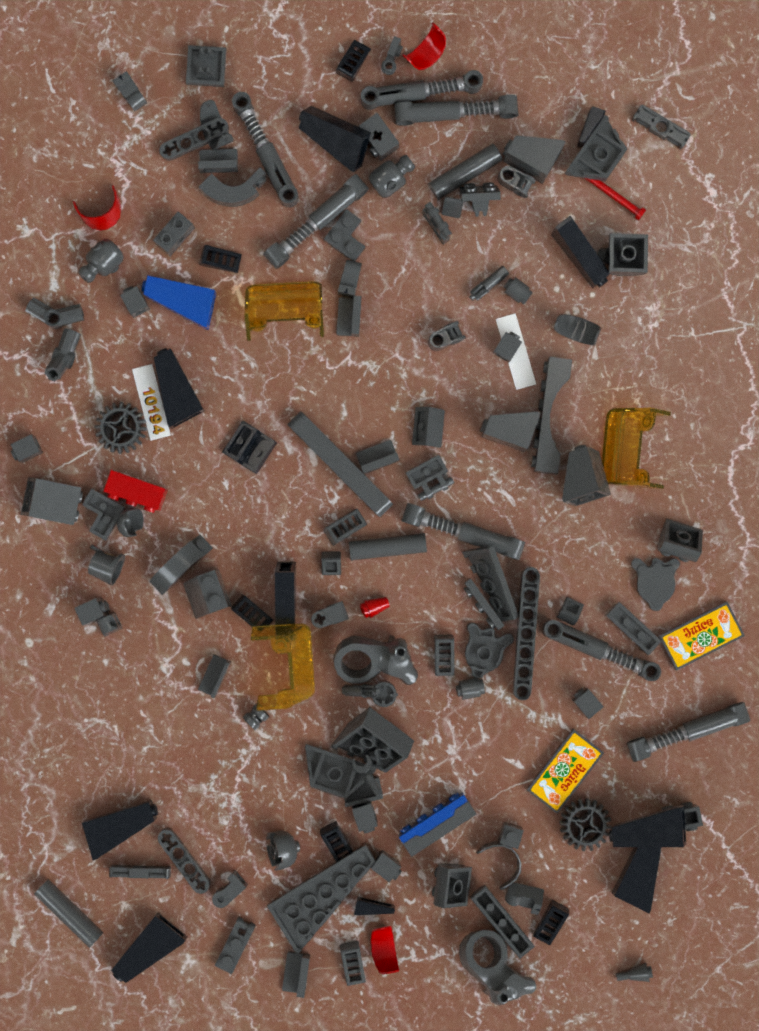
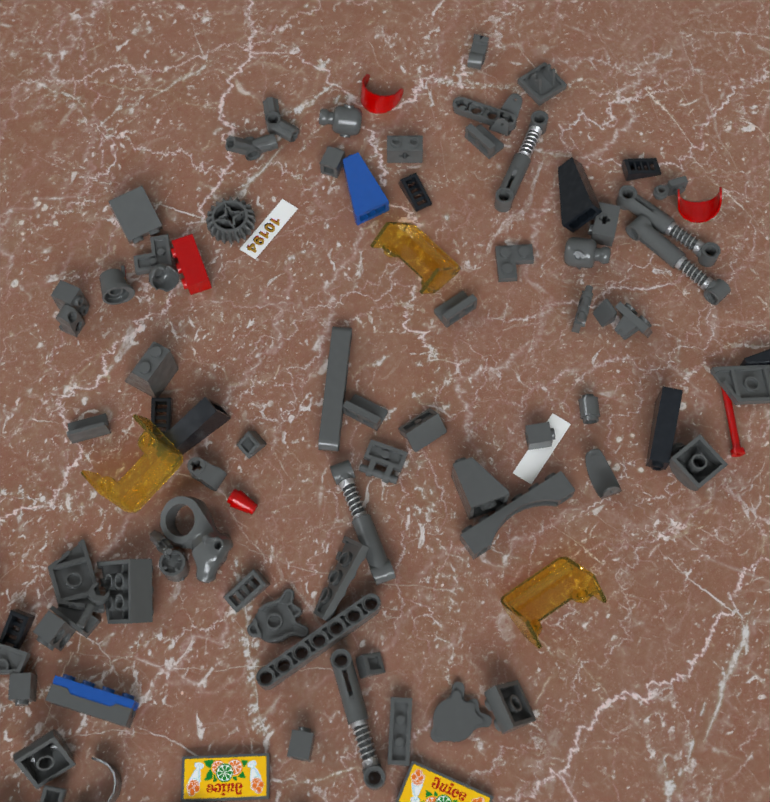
camera: 55 degrees right, 20 degrees down
(26, 448) = (162, 173): dark grey brick -> none
(176, 391) = (291, 235): black slope -> none
(180, 563) = (159, 330): dark grey arch -> none
(233, 195) = (471, 167): dark grey arch -> none
(249, 447) = (292, 316): black slope -> none
(255, 717) = (76, 483): dark grey wheel -> none
(331, 536) = (279, 434): dark grey slope -> none
(349, 279) = (483, 285): dark grey leg -> none
(351, 191) = (550, 236): dark grey piece -> none
(387, 546) = (300, 474): dark grey brick -> none
(449, 335) = (505, 385): dark grey piece -> none
(465, 171) = (641, 302): dark grey brick -> none
(470, 688) = (234, 633): dark grey brick -> none
(482, 605) = (314, 586): dark grey plate -> none
(485, 286) = (573, 384): dark grey piece -> none
(510, 835) = (129, 774): dark grey brick -> none
(517, 181) = (669, 343): dark grey piece -> none
(533, 155) = (701, 335): dark grey slope -> none
(584, 477) = (489, 577): dark grey slope -> none

